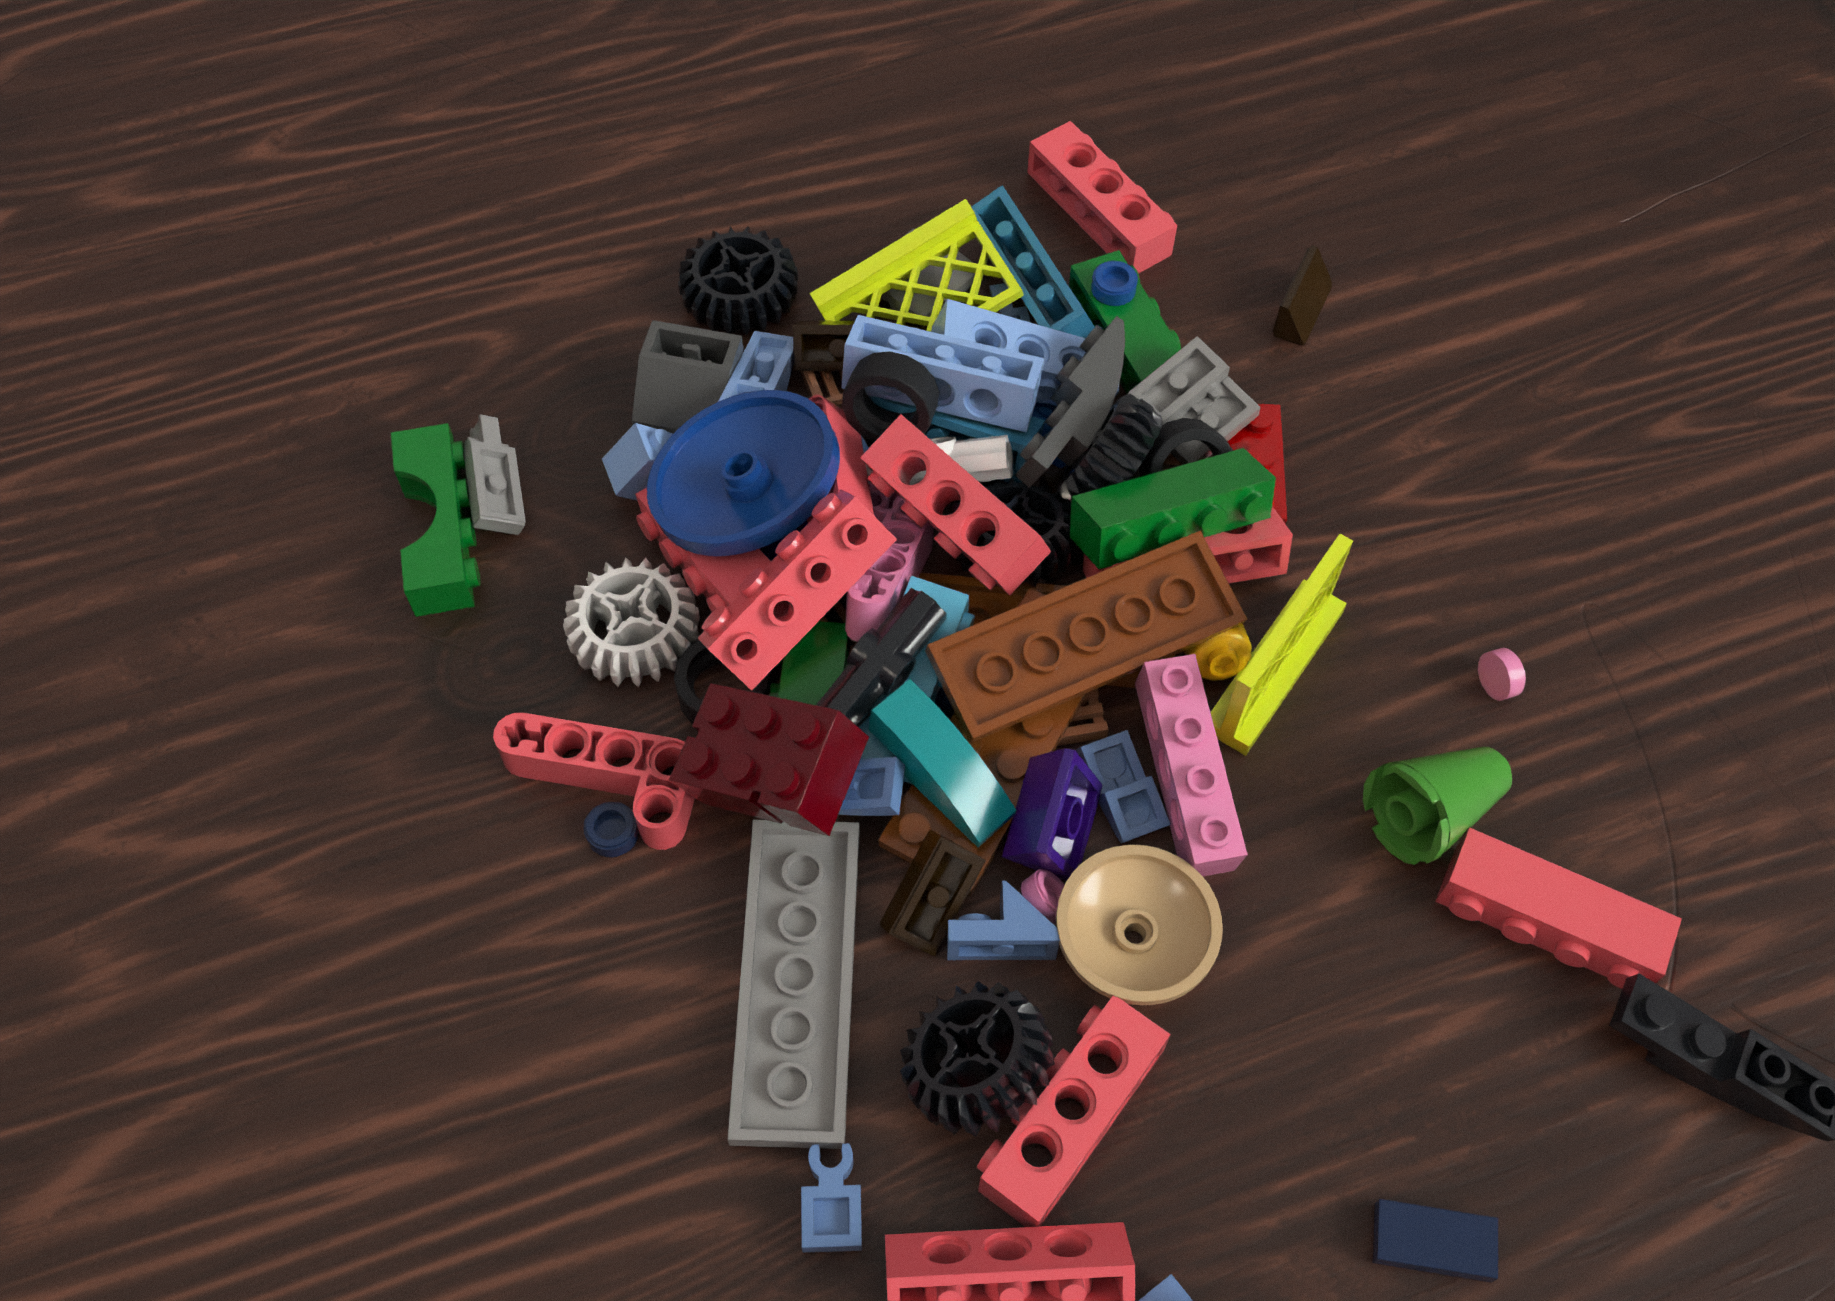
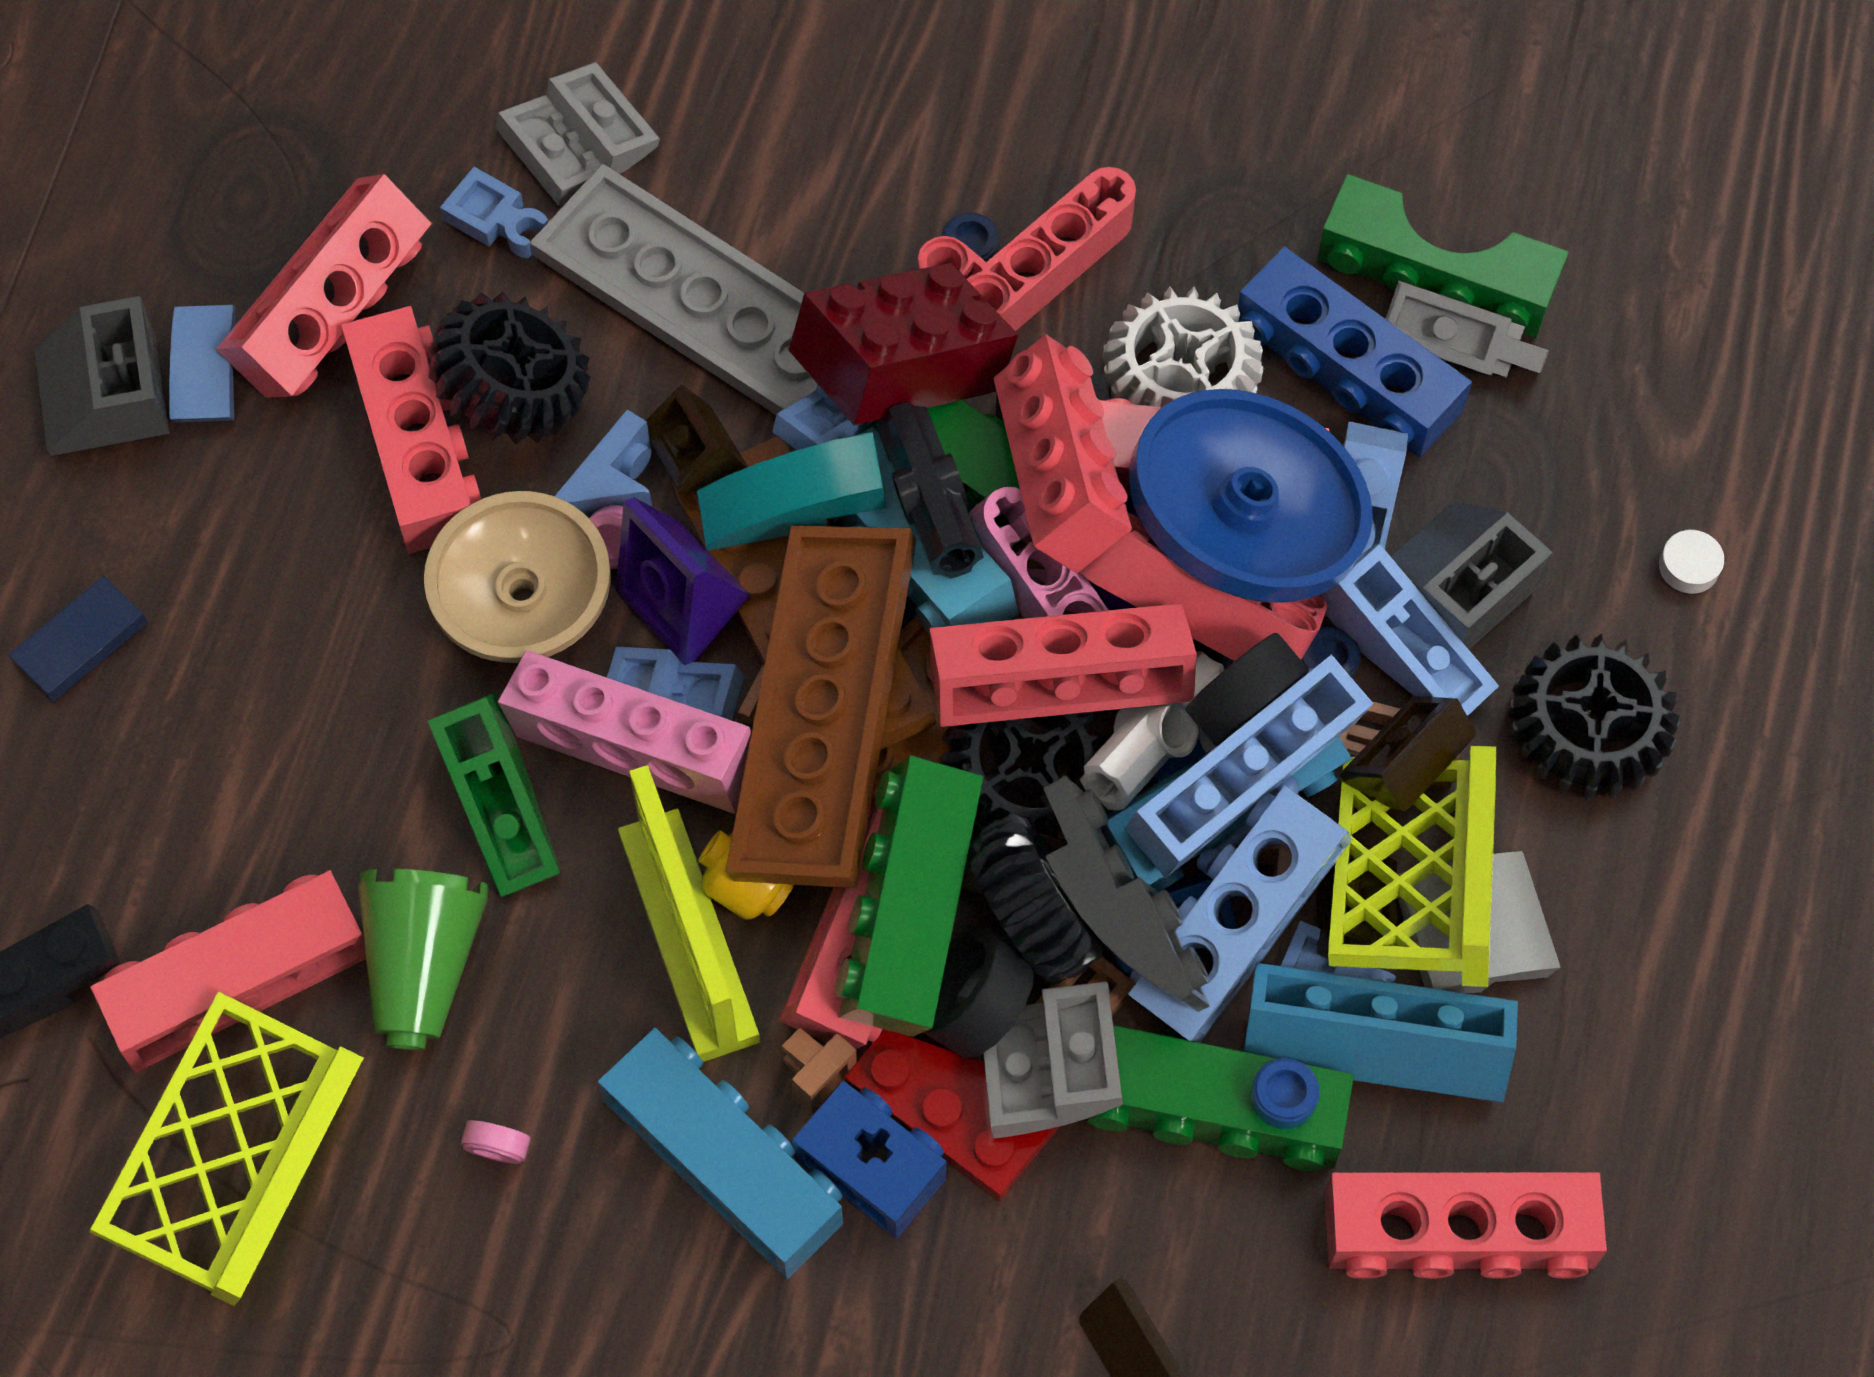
camera: 125 degrees right, 5 degrees up
(557, 466) = (1342, 323): none -> blue brick
(584, 291) = (1691, 561): none -> white tile
(701, 1200) = (576, 131): none -> light grey slope
(1290, 840) = (496, 793): none -> green slope
(1306, 525) = (817, 1067): none -> nougat tile
(1322, 473) = (884, 1192): none -> blue brick
(1390, 551) = (723, 1152): none -> dark azure brick
(1644, 776) = (279, 1174): none -> neon yellow fence

